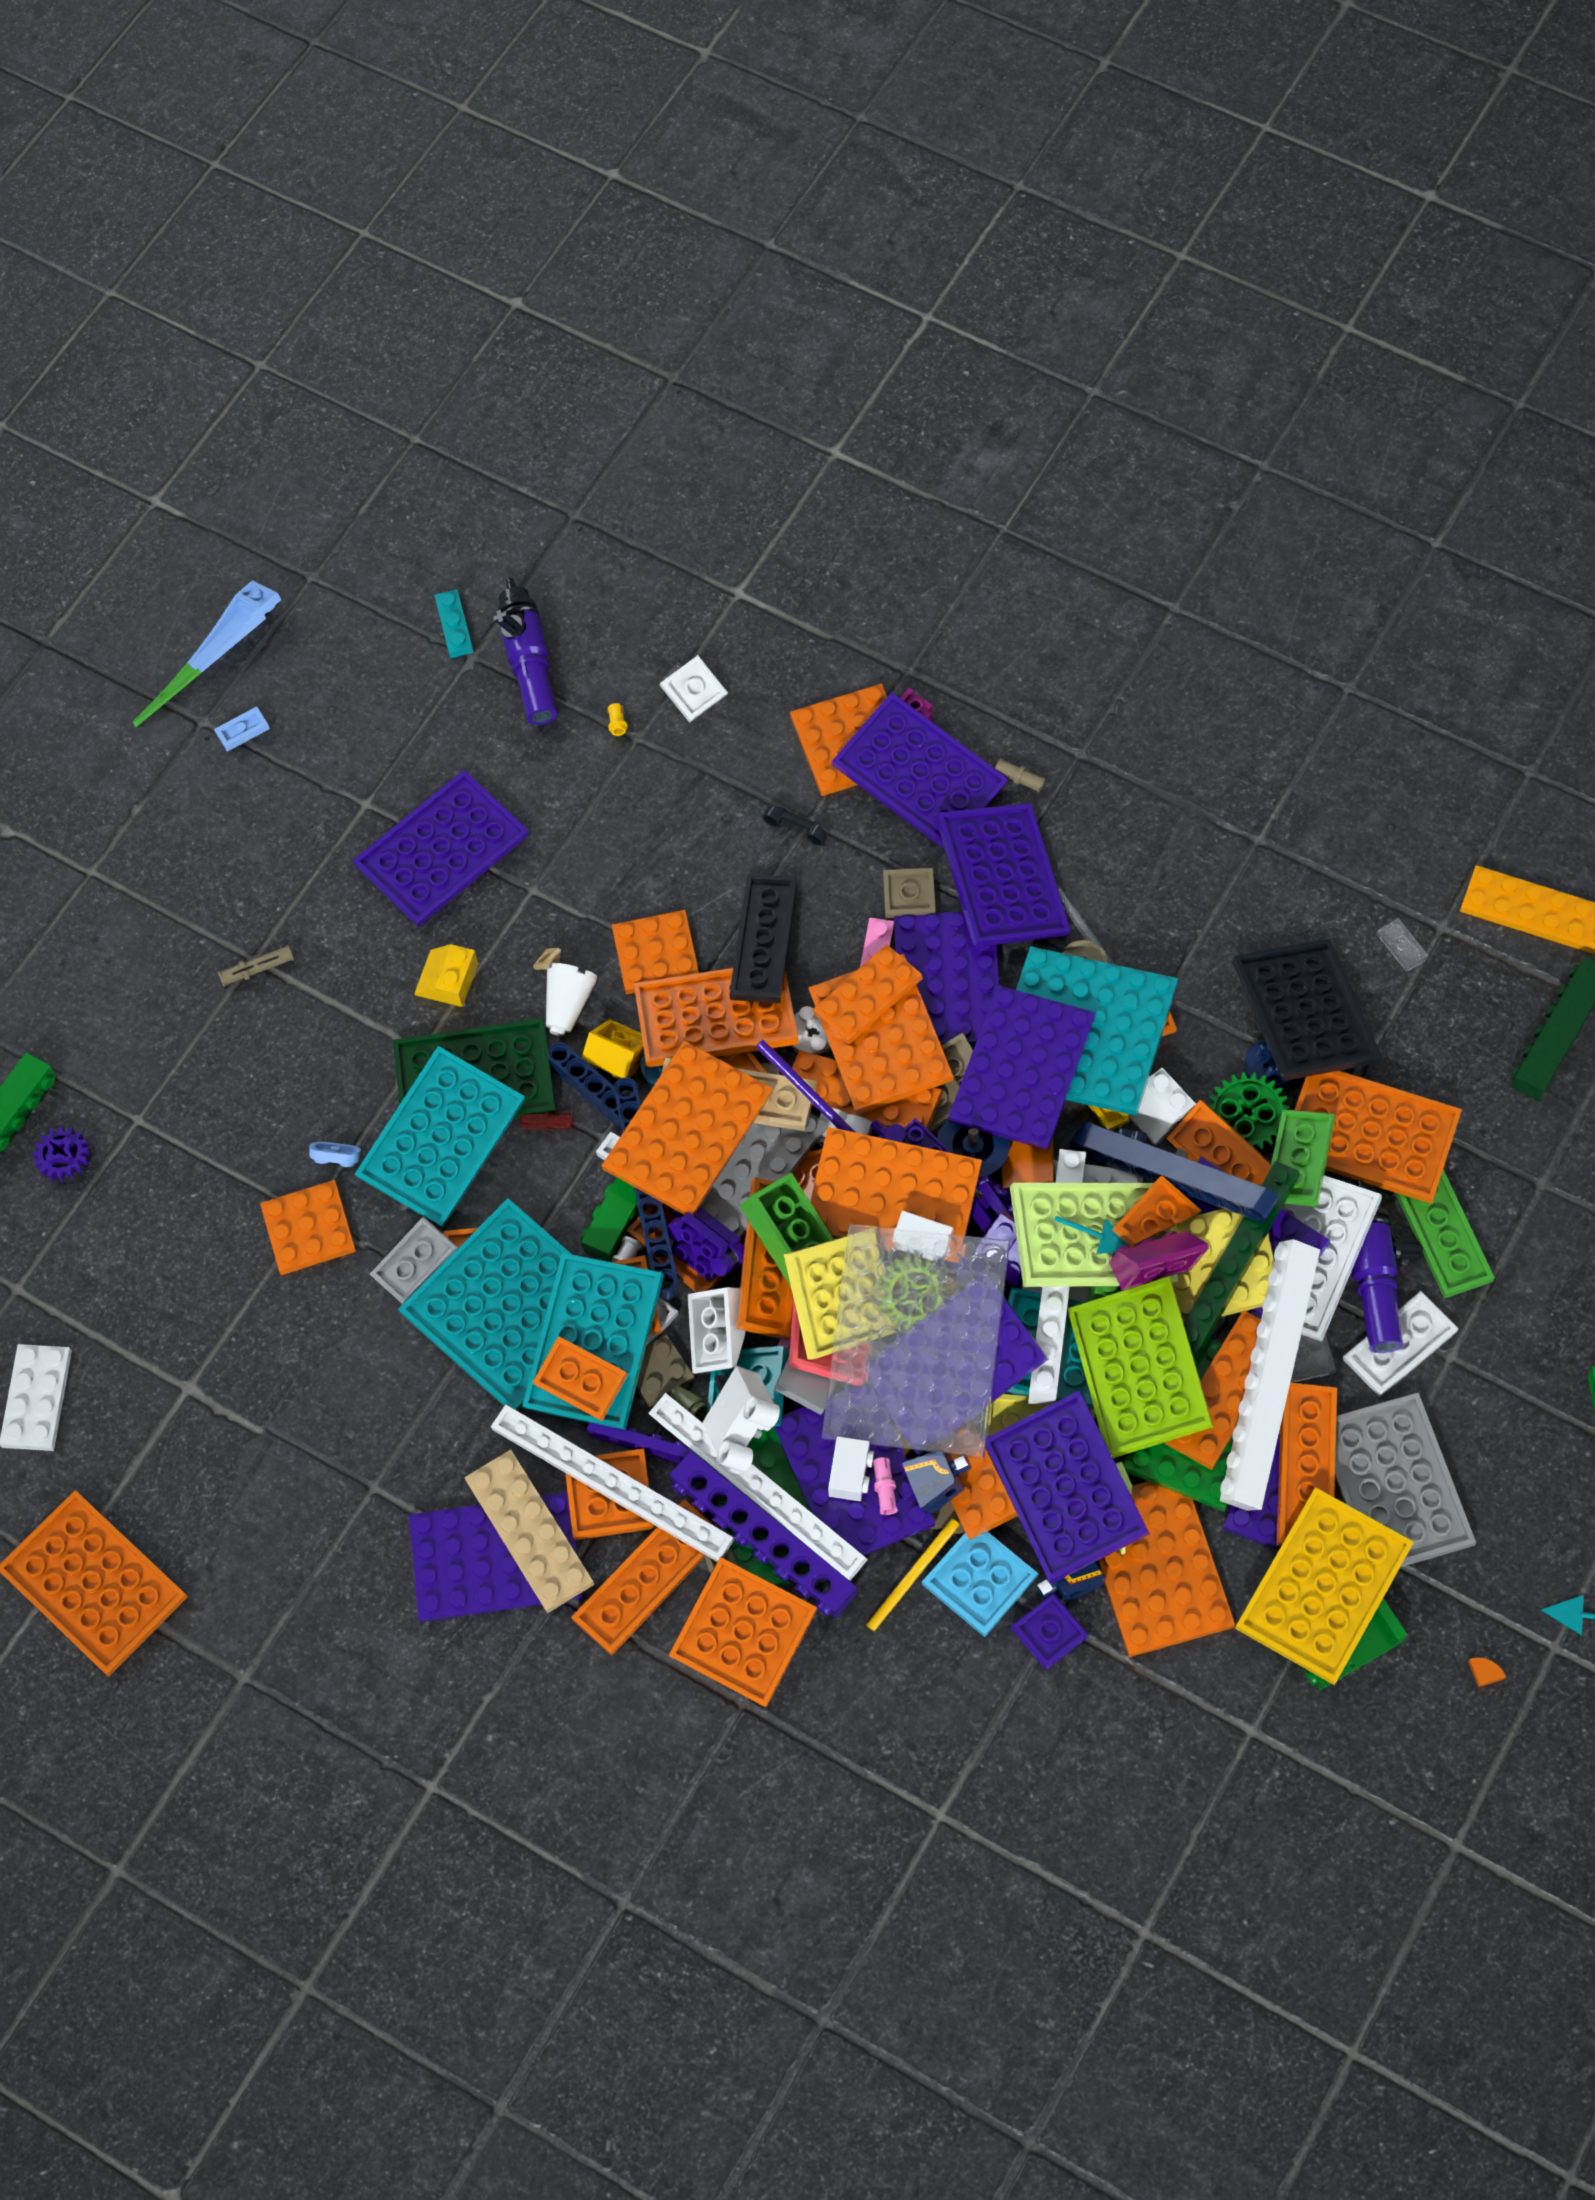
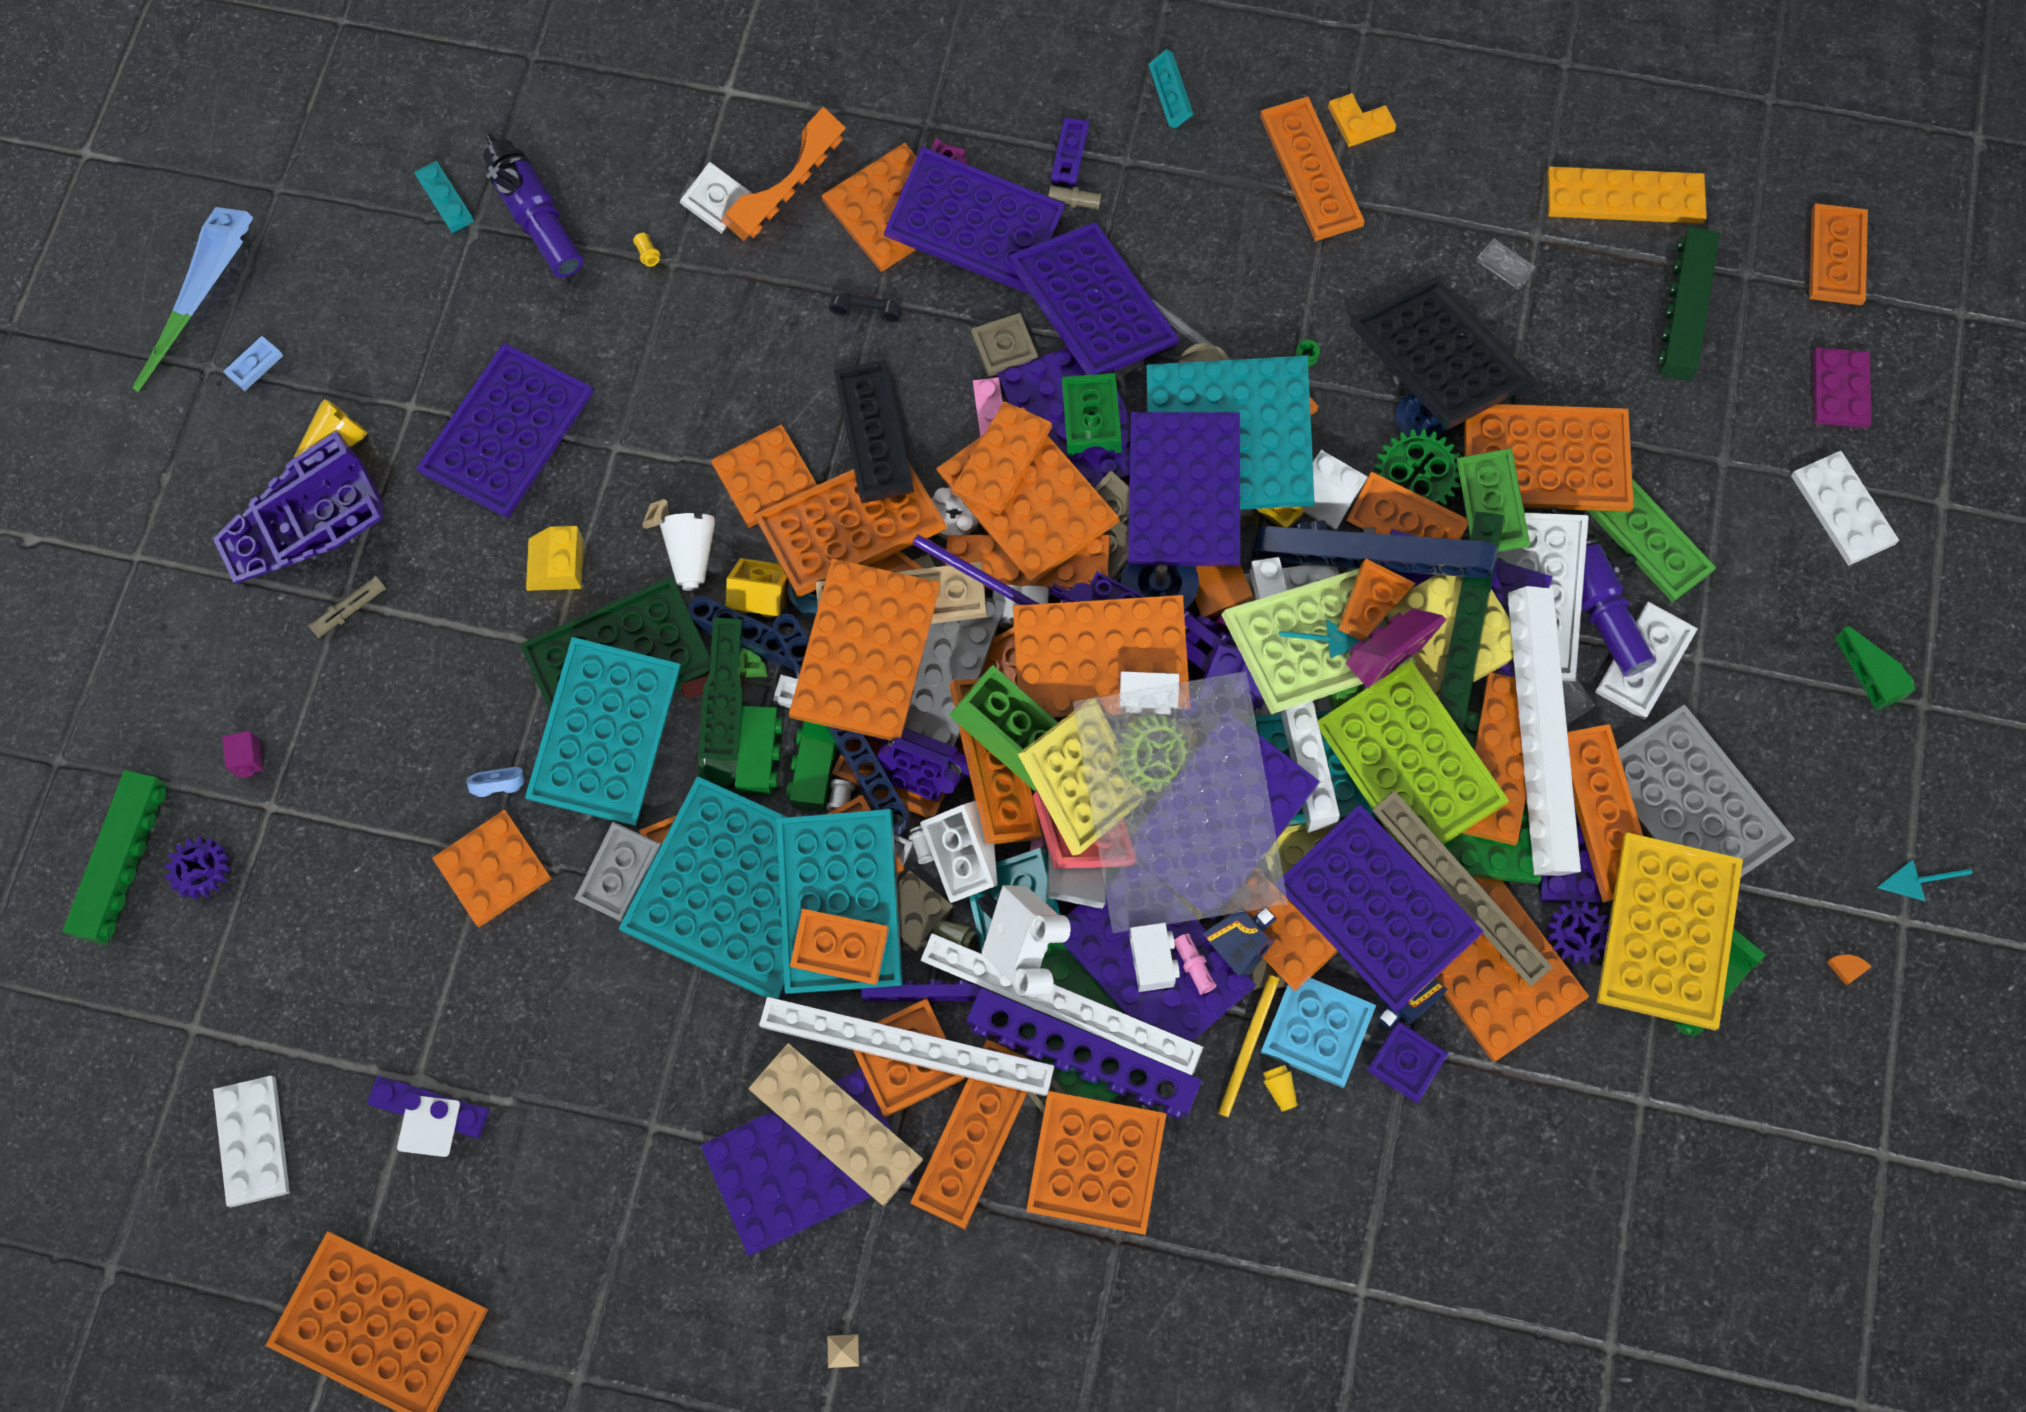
camera: 20 degrees left, 5 degrees up
(128, 1067) = (242, 754): none -> magenta brick
(186, 1428) = (426, 1134): none -> white sticker
(190, 1413) = (398, 1097): none -> dark purple plate
(244, 873) = (303, 513): none -> dark purple wedge
(285, 812) = (327, 421): none -> yellow cone
(473, 1724) = (843, 1351): none -> tan slope
(549, 1143) = (722, 705): none -> dark green piece
(569, 1192) = (758, 751): none -> green brick
(588, 1115) = (751, 664): none -> bright green tile
(683, 1316) = (921, 845): none -> white pin
(720, 709) = (751, 209): none -> orange arch
(929, 1619) = (1281, 1087): none -> yellow cone
(968, 960) = (1091, 395): none -> green piece
(1030, 731) = (1070, 151): none -> dark purple plate
(1143, 698) = (1170, 89): none -> teal plate
(1145, 1491) = (1461, 888): none -> dark tan plate
(1186, 968) = (1308, 345): none -> green bush
(1235, 1565) = (1577, 920): none -> dark purple gear
(1250, 807) = (1312, 168): none -> orange plate
(1312, 780) = (1359, 126): none -> light orange plate

